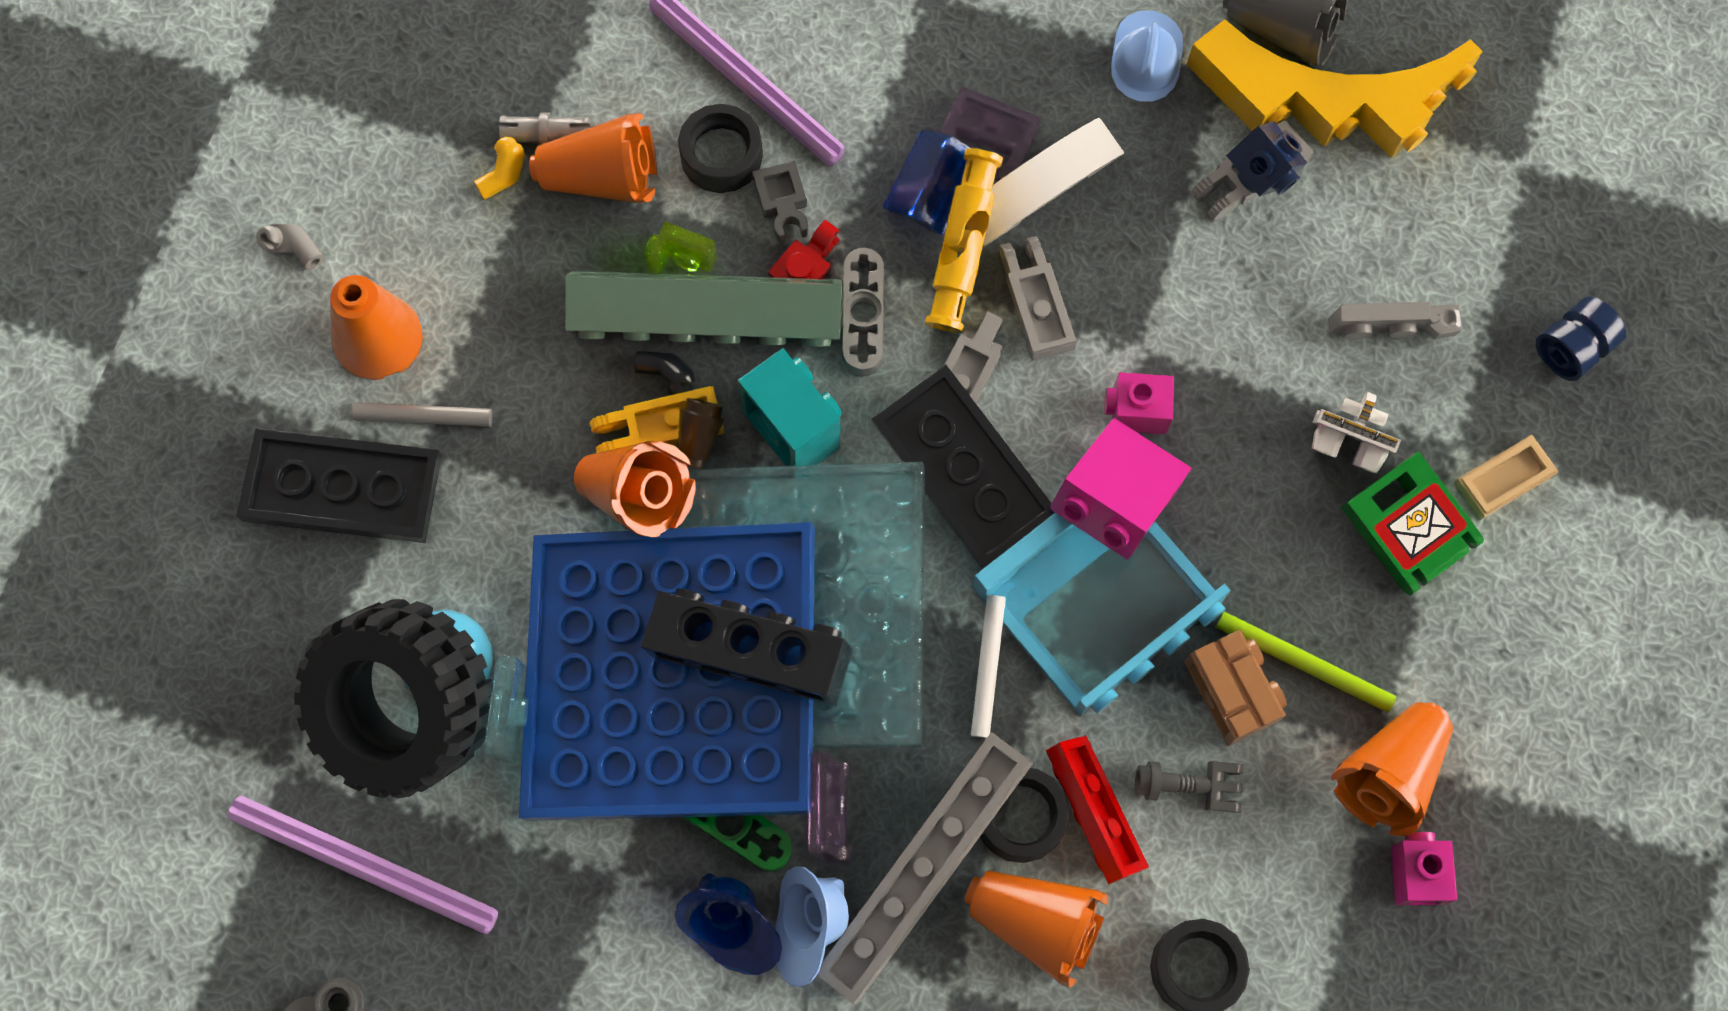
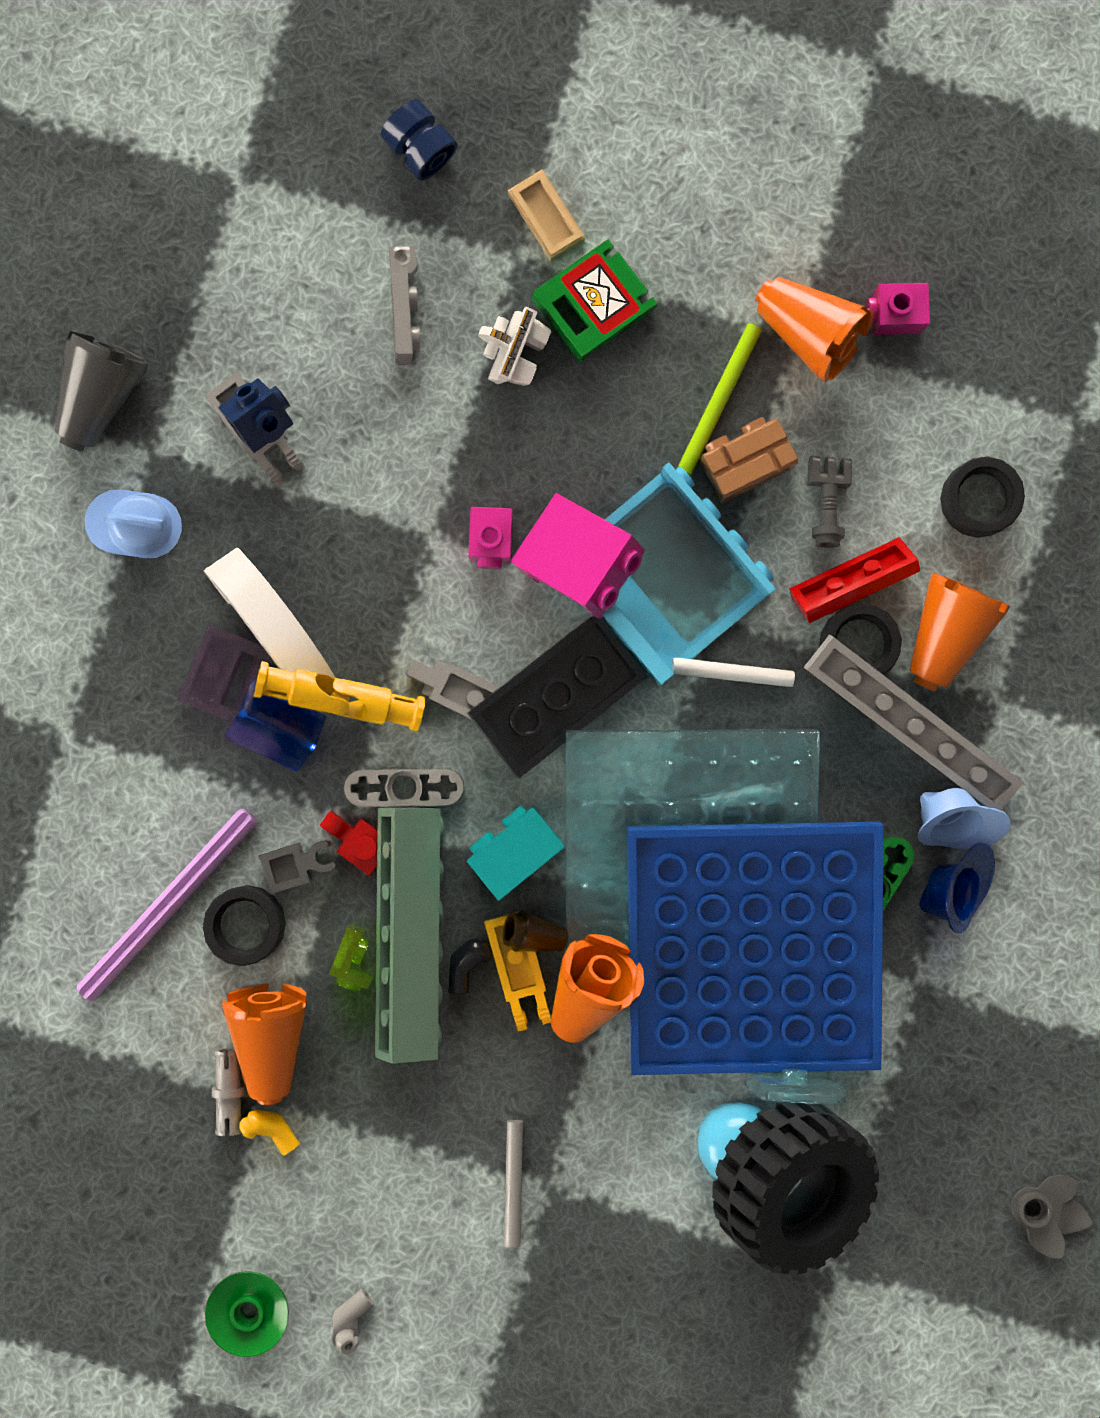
camera: 90 degrees left, 15 degrees up
(304, 124) = (239, 1332): none -> green dish
(339, 485) = (585, 1252): black plate -> none
(363, 864) = (917, 1199): lavender axle -> none
(372, 329) = (437, 1233): orange cone -> none
(815, 677) = (739, 947): black brick -> none
(828, 809) = (867, 807): clear purple plate -> none
(1038, 302) = (391, 628): light grey hinge -> none
(1327, 104) = (189, 300): yellow arch -> none

